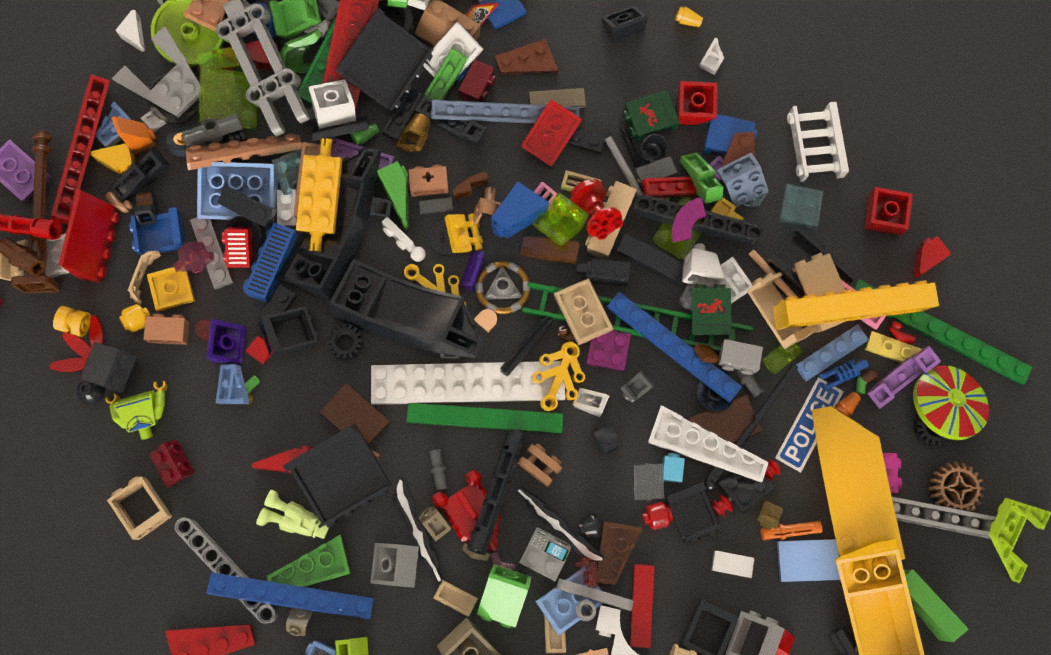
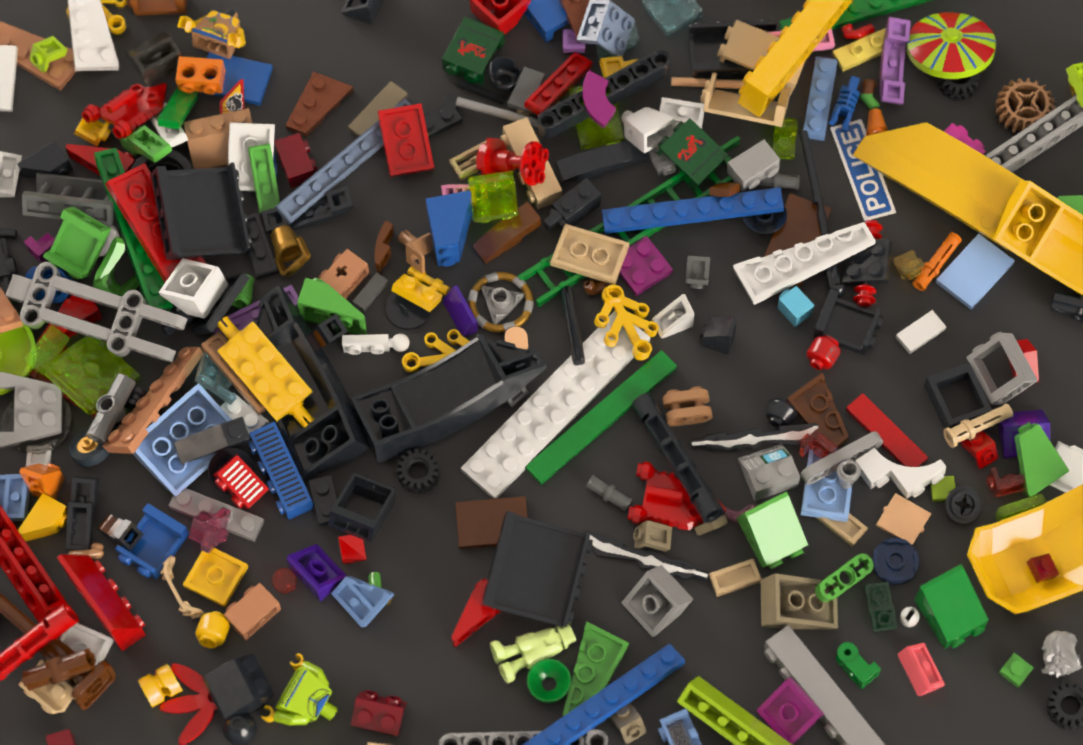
camera: 40 degrees left, 10 degrees down
(270, 543) = (549, 669): none -> green piece
(648, 482) = (787, 333): clear piece -> none
(703, 177) = (570, 57): bright green slope -> none

